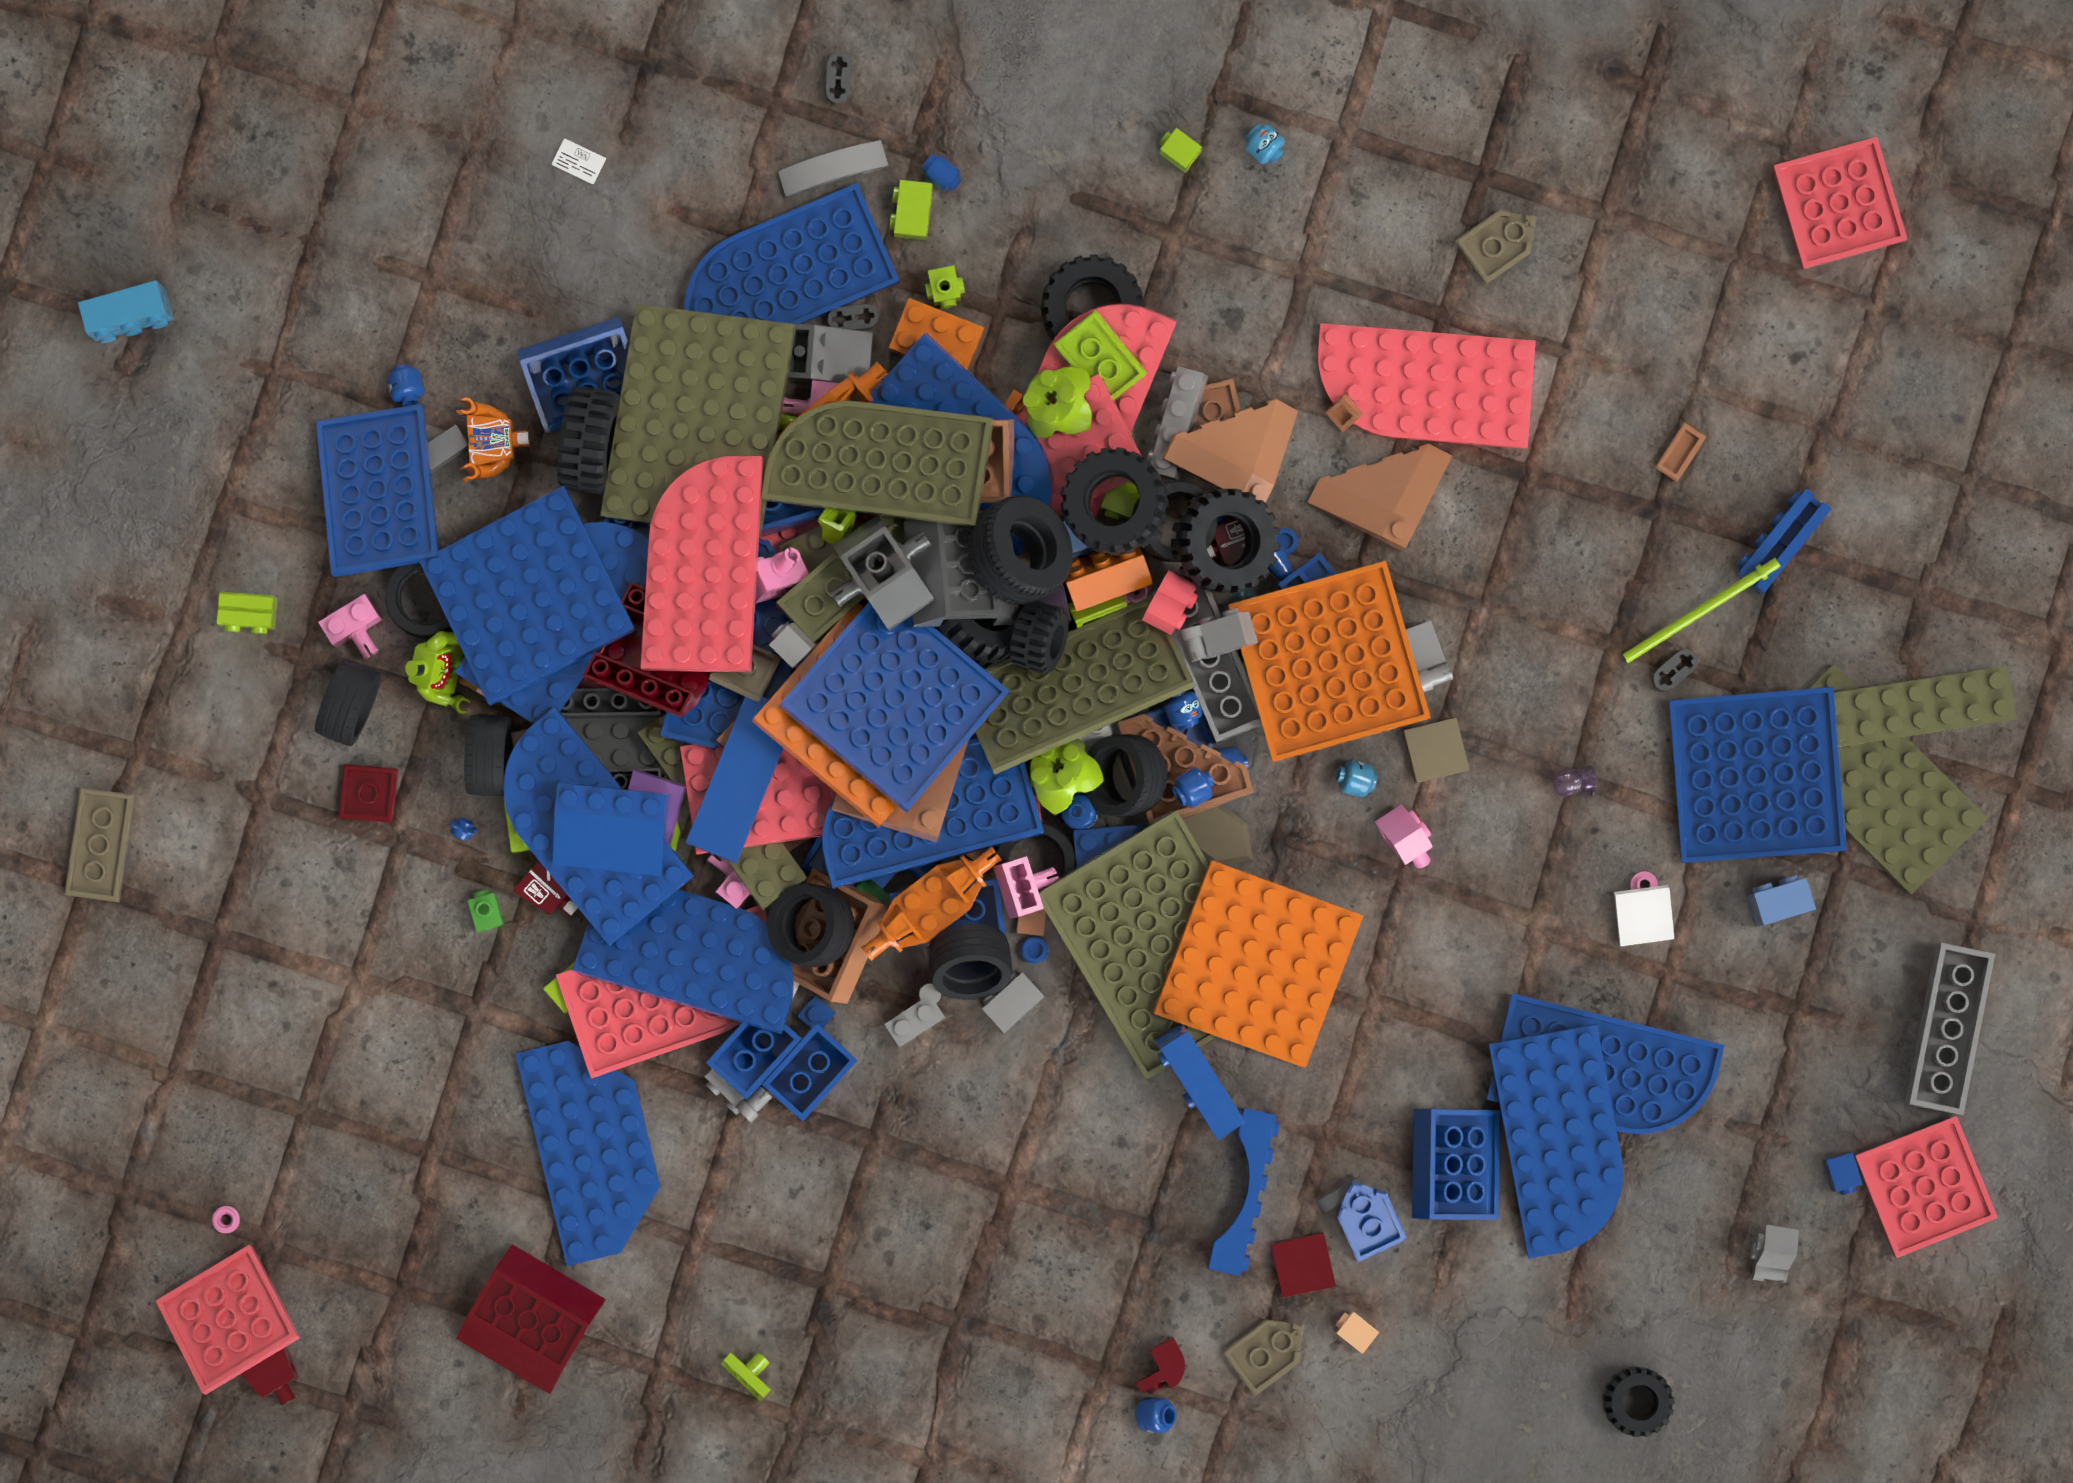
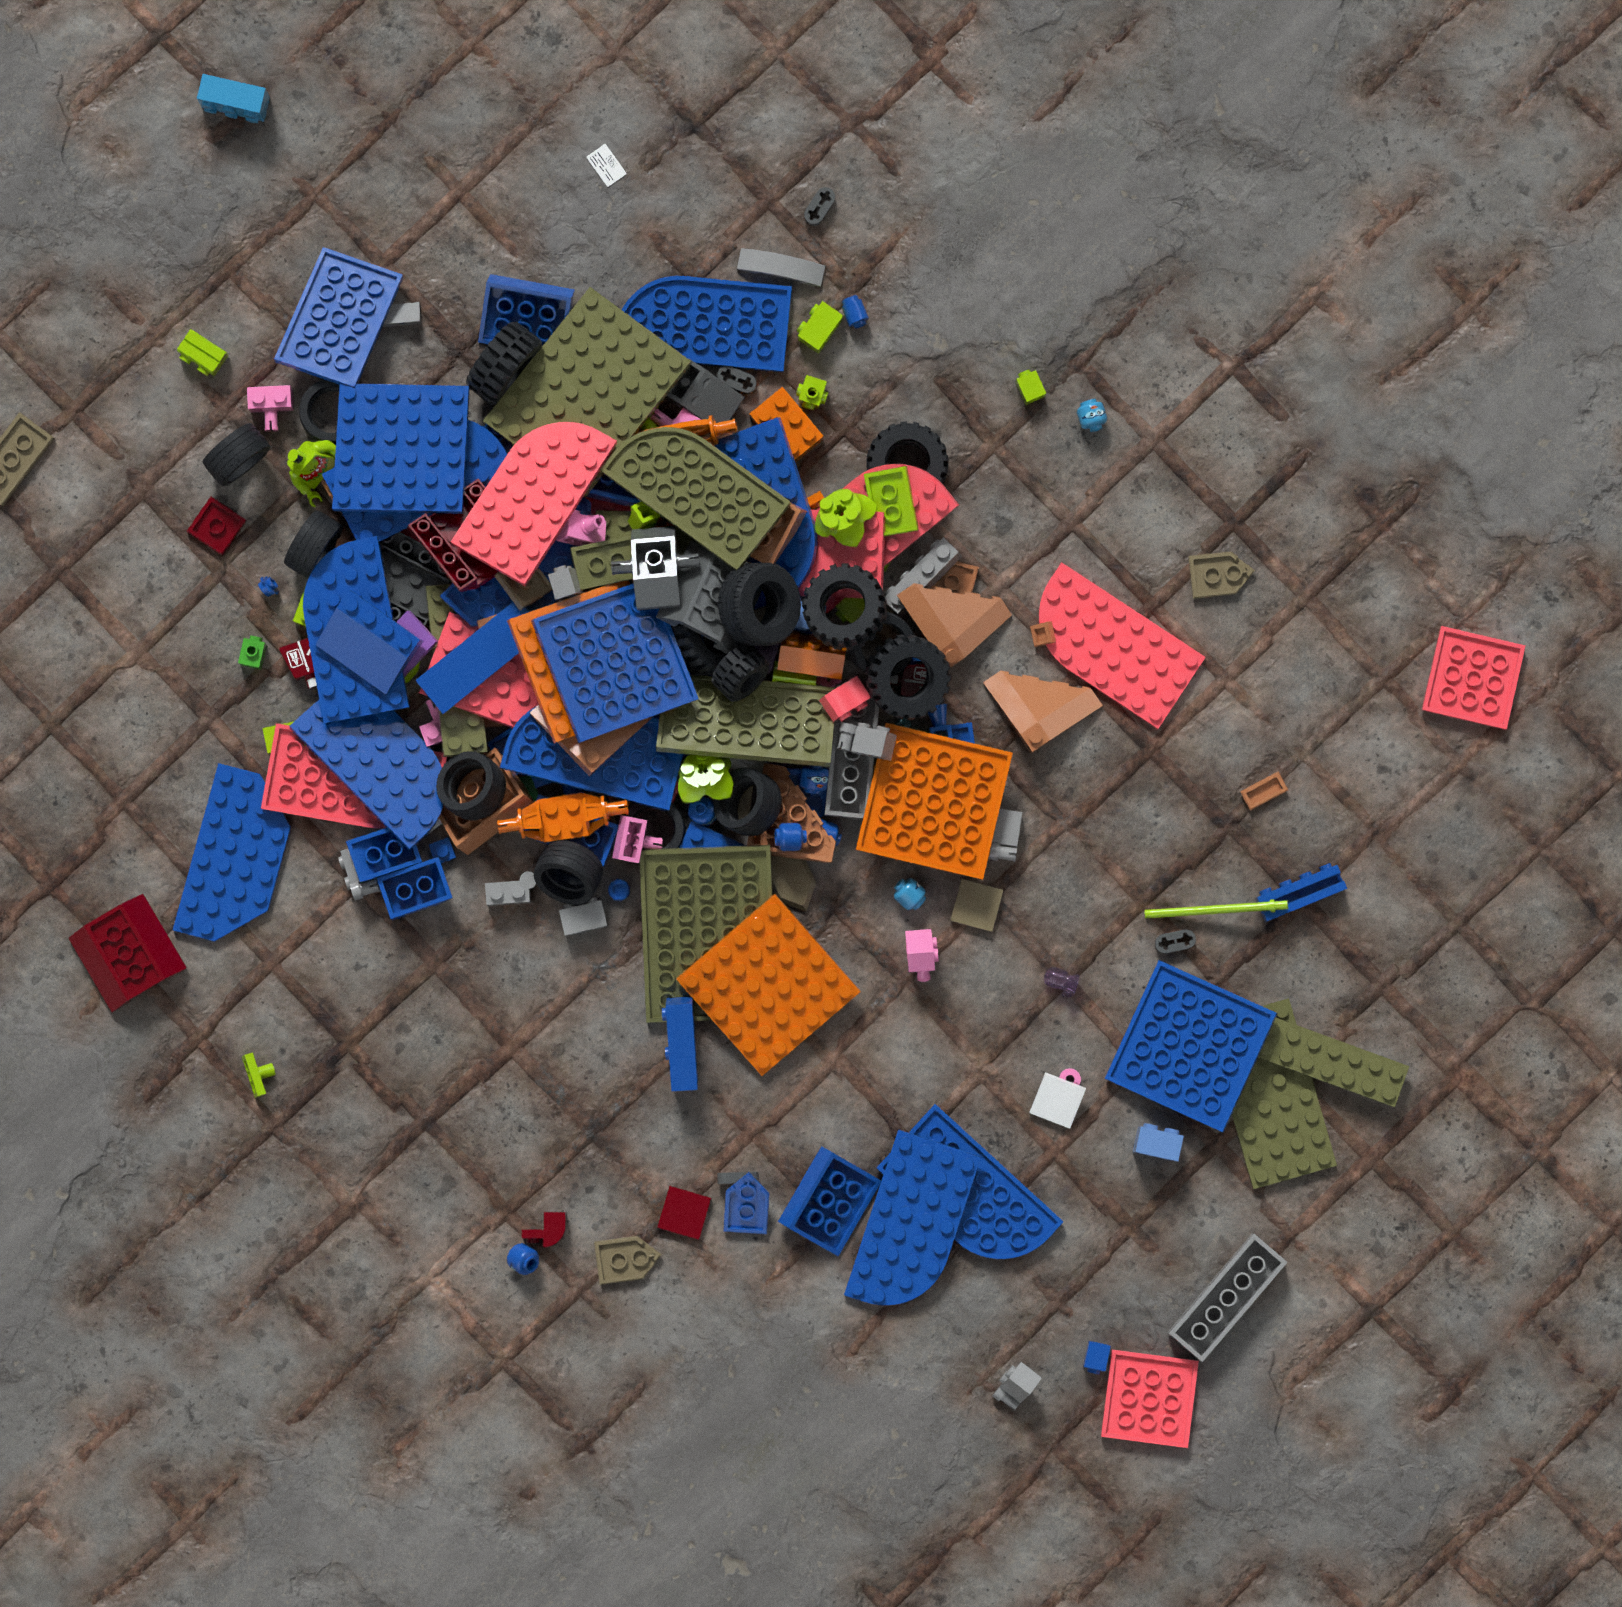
camera: 25 degrees right, 0 degrees up
(405, 385) = (399, 255): blue head -> none
(490, 440) = (436, 326): orange torso -> none
(1032, 923) = (627, 870): nougat tile -> none
(1230, 1248) = (700, 1104): blue arch -> none
(1288, 540) = (953, 701): blue tile -> none
(1356, 1331) = (695, 1278): light nougat brick -> none
(1614, 1401) = (858, 1455): black tyre -> none

